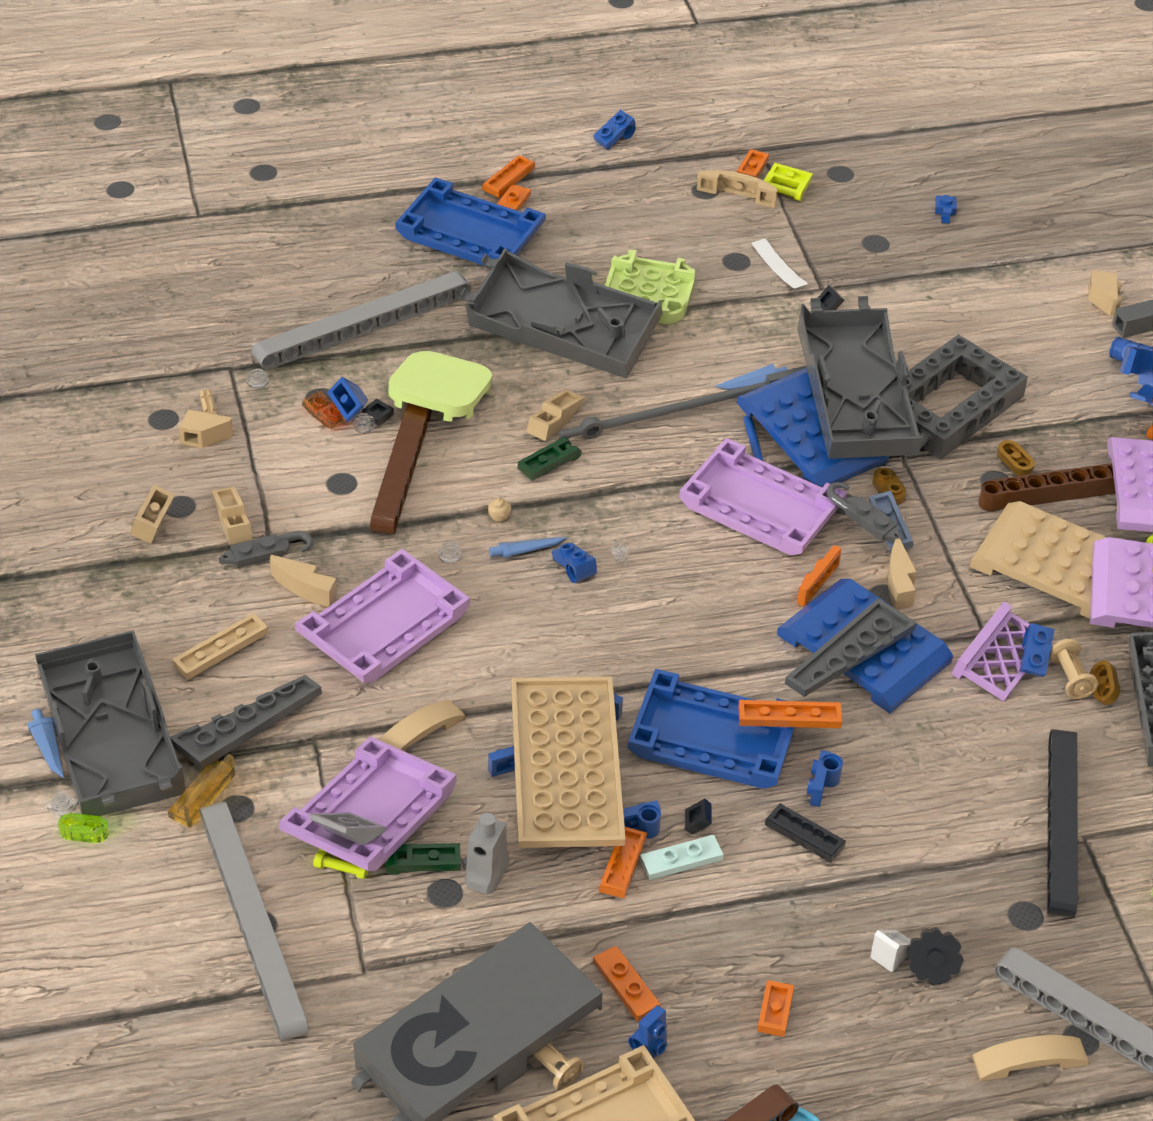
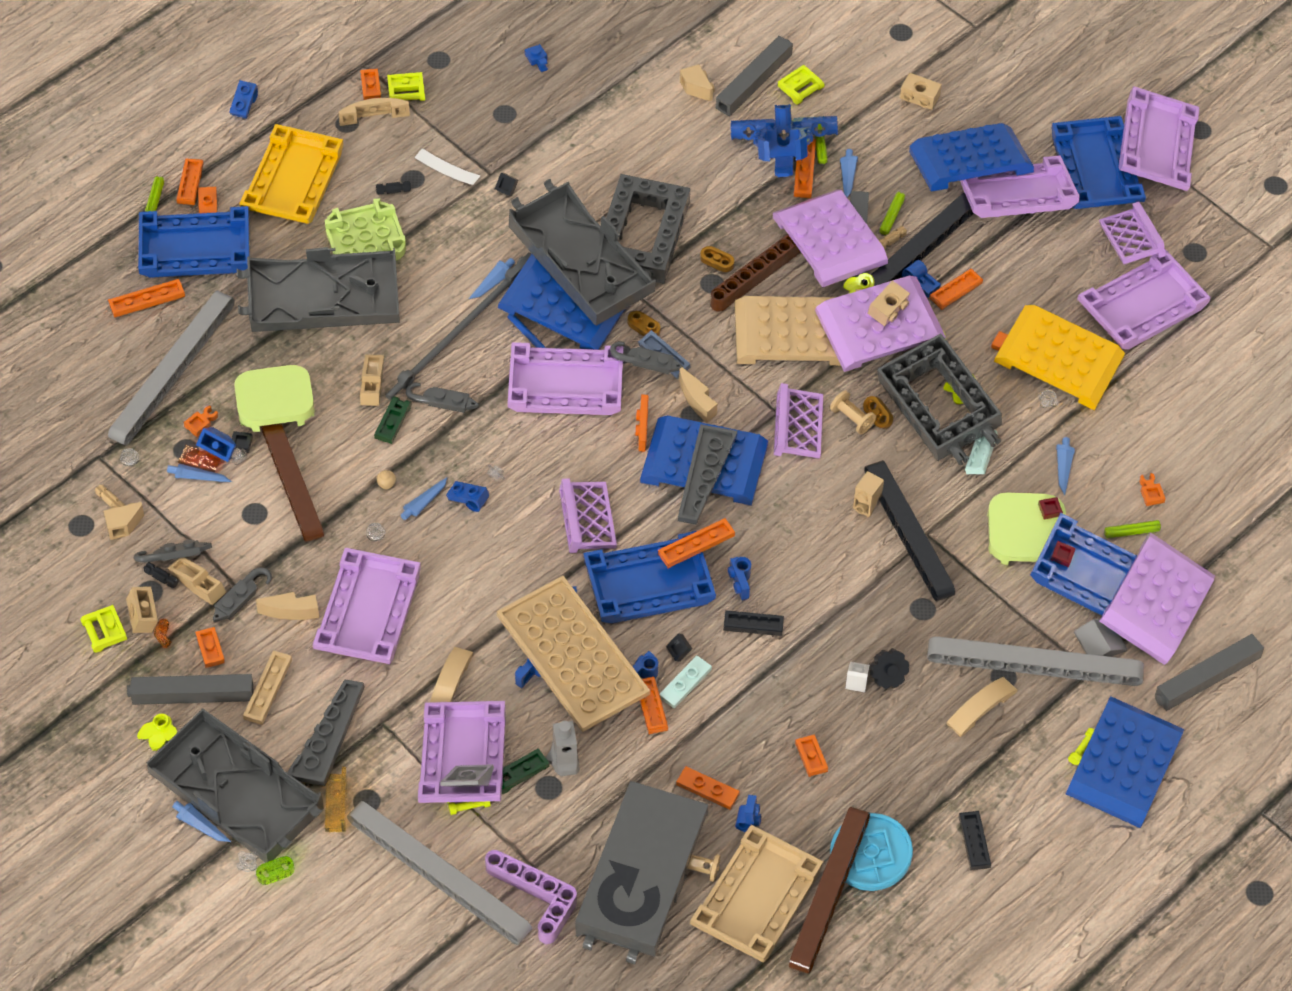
camera: 30 degrees left, 10 degrees up
(79, 632) = (157, 733): none -> neon yellow plate
(111, 518) = (109, 624): none -> neon yellow plate
(141, 610) = (190, 689): none -> dark grey brick
(159, 545) = (161, 631): none -> clear orange arm
(193, 581) = (210, 647): none -> orange plate
(201, 495) = (161, 575): none -> black axle
(228, 477) = (173, 551): none -> dark grey plate
(306, 418) = (189, 472): none -> medium blue bar
(323, 946) = (537, 889): none -> lavender beam
(356, 376) = (199, 421): none -> orange plate
(387, 253) = (146, 298): none -> orange plate
(467, 173) = (155, 194): none -> lime axle
(615, 208) = (293, 174): none -> yellow slope
(617, 463) = (443, 398): none -> dark grey plate
(671, 634) = (571, 513): none -> lavender fence
(709, 259) = (394, 187): none -> black axle
(1032, 756) = (867, 493): none -> tan slope
(1037, 648) = (822, 408): blue plate -> none

